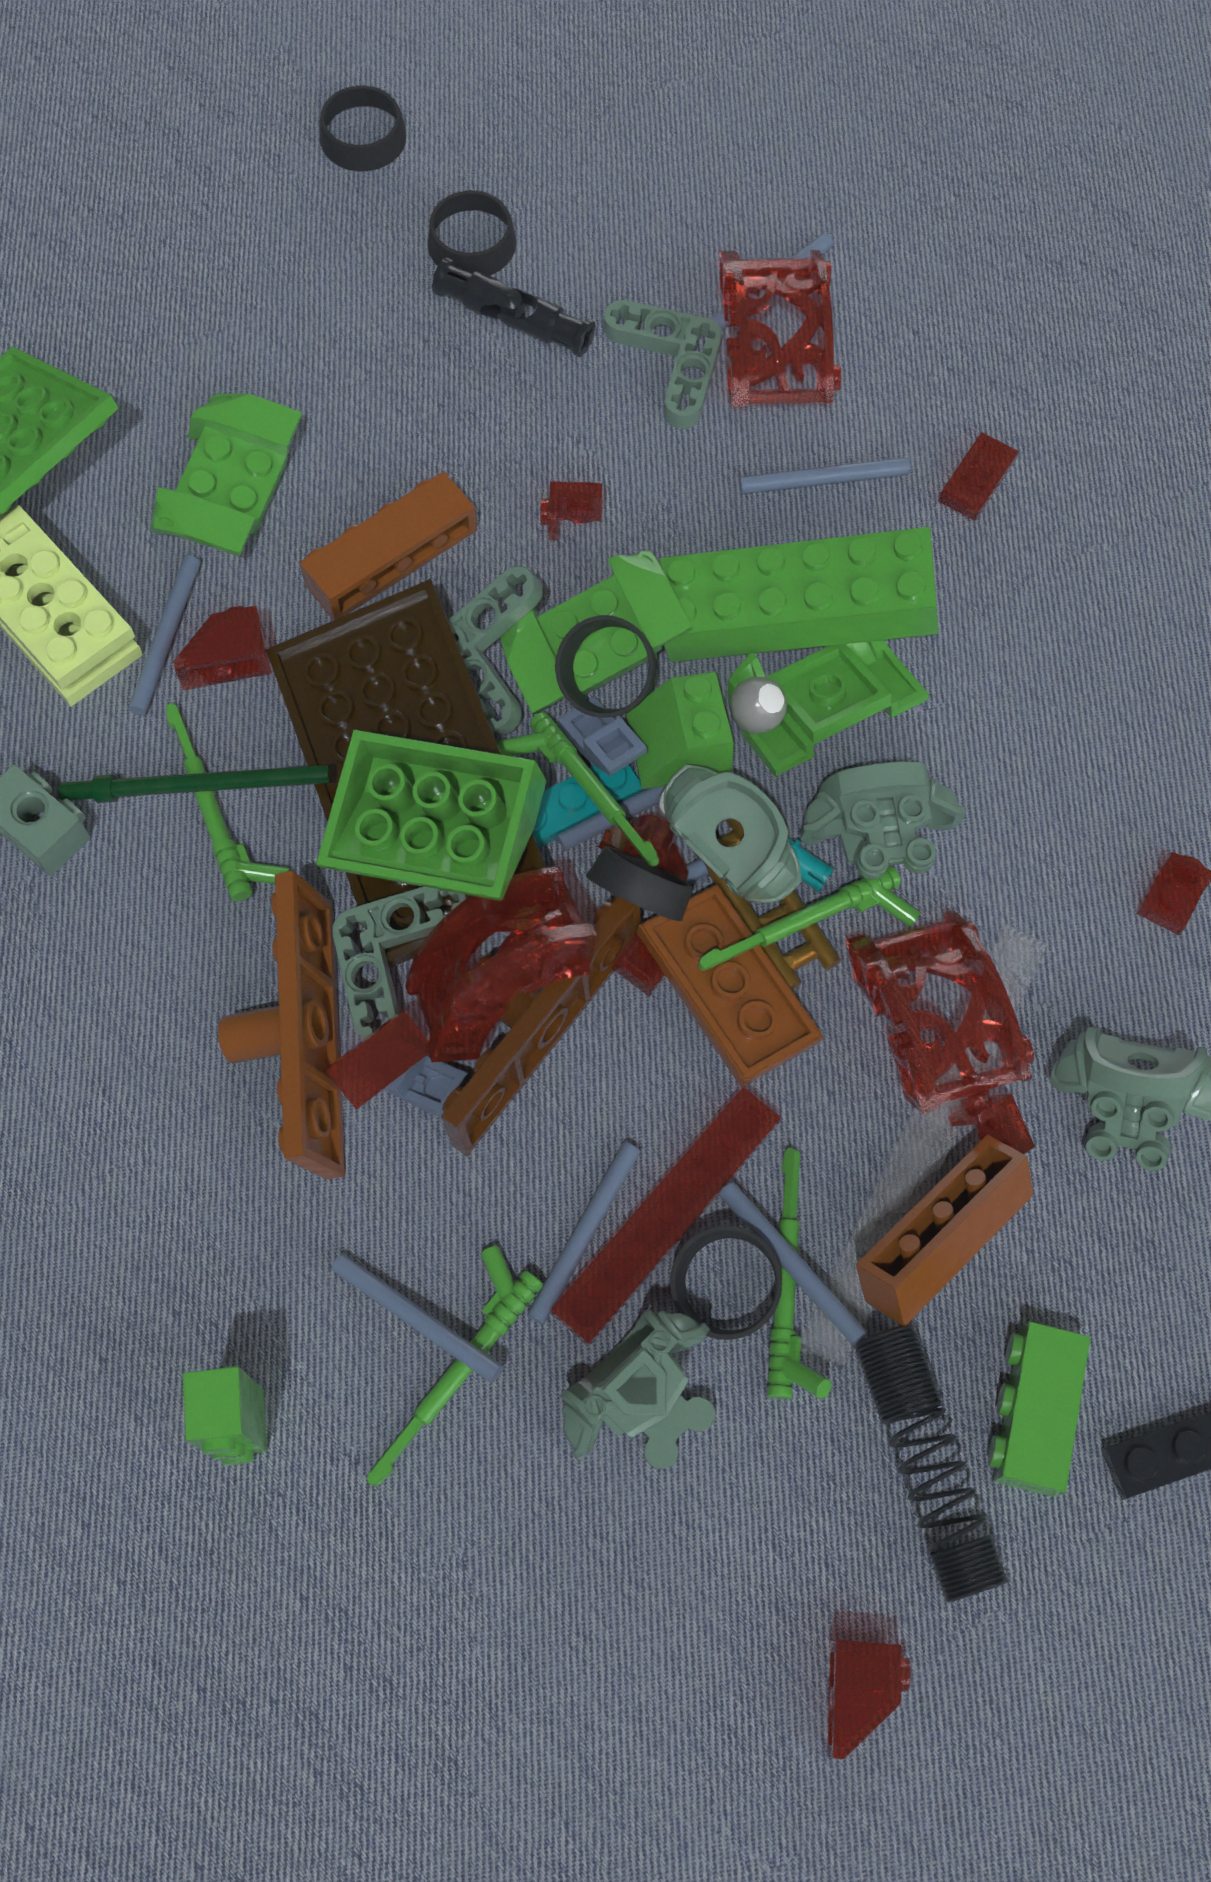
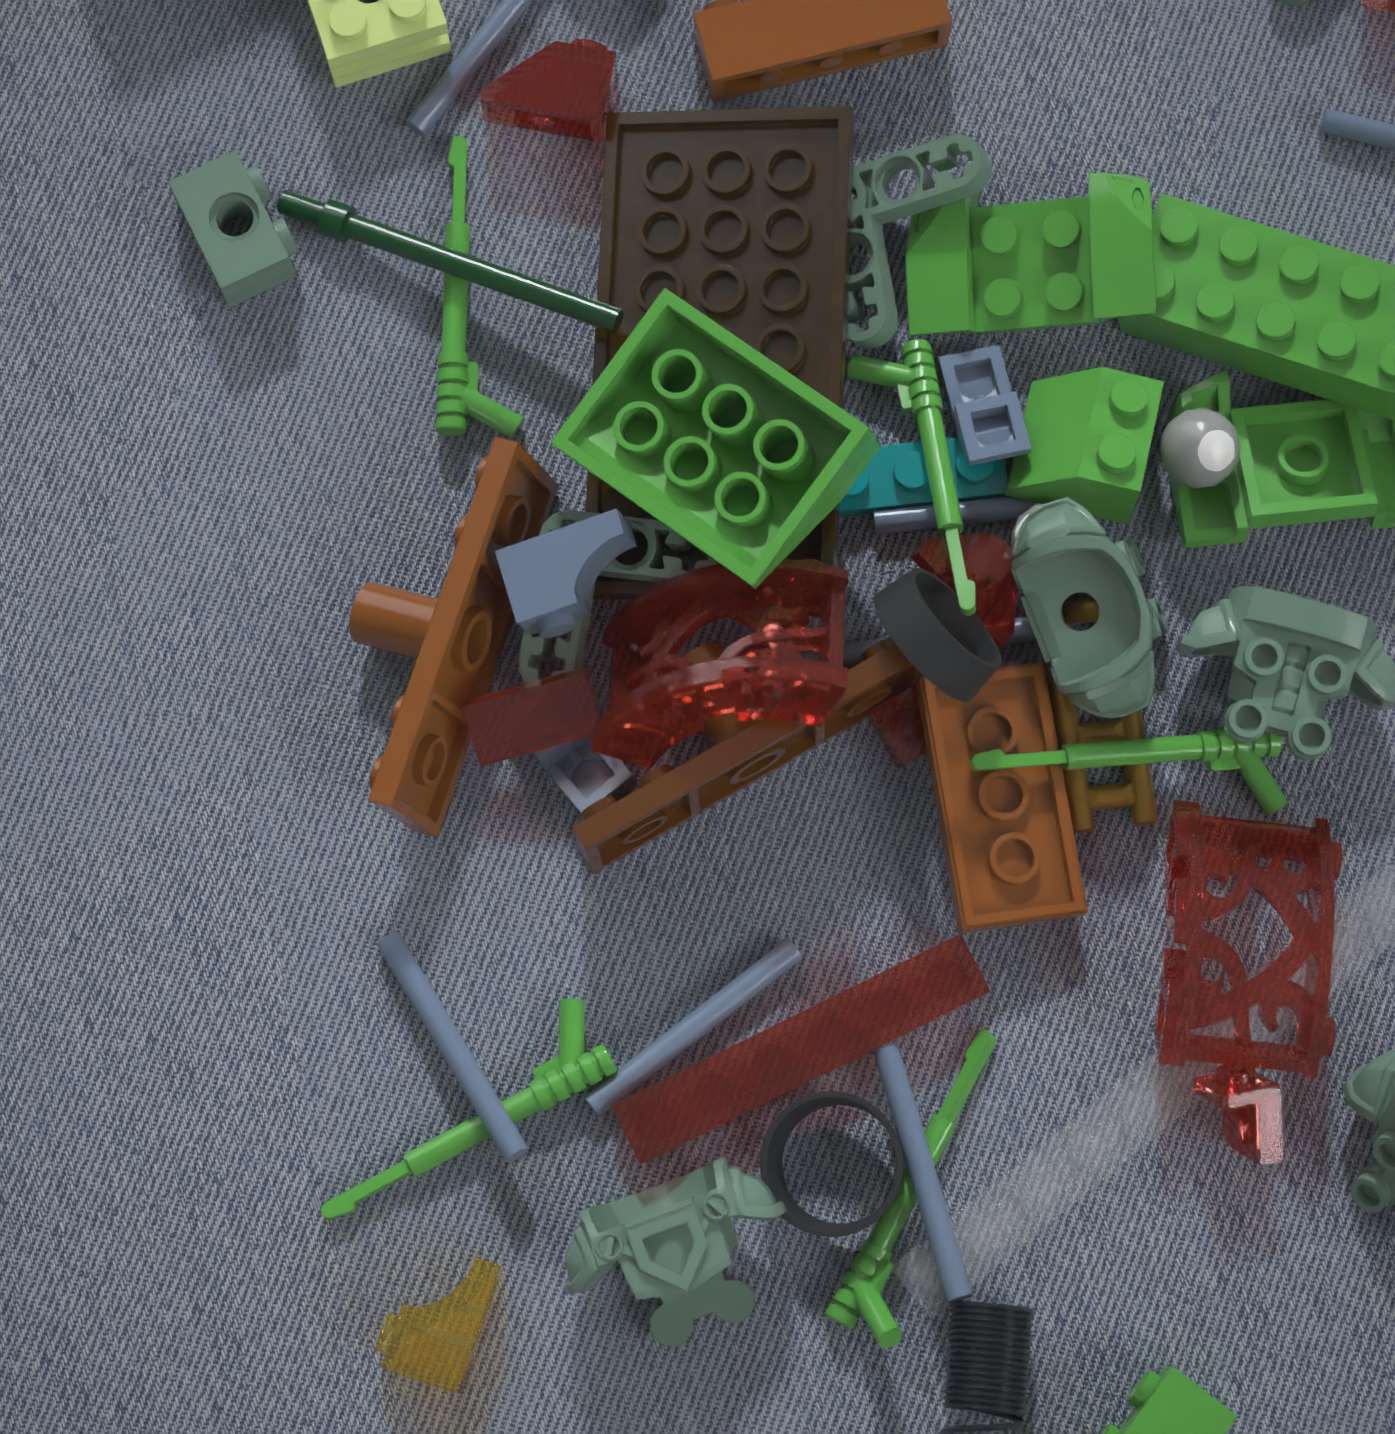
camera: 25 degrees right, 10 degrees up
(225, 1414) = (185, 1073): bright green brick -> none
(356, 947) = (555, 571): none -> sand blue arch
(495, 1537) = (440, 1338): none -> clear yellow arch
(565, 660) = (969, 315): black tyre -> none
(571, 501) = (1087, 59): clear red bracket -> none
(813, 870) = (1172, 686): teal pin -> none
(945, 1230) = (1124, 1214): dark orange brick -> none

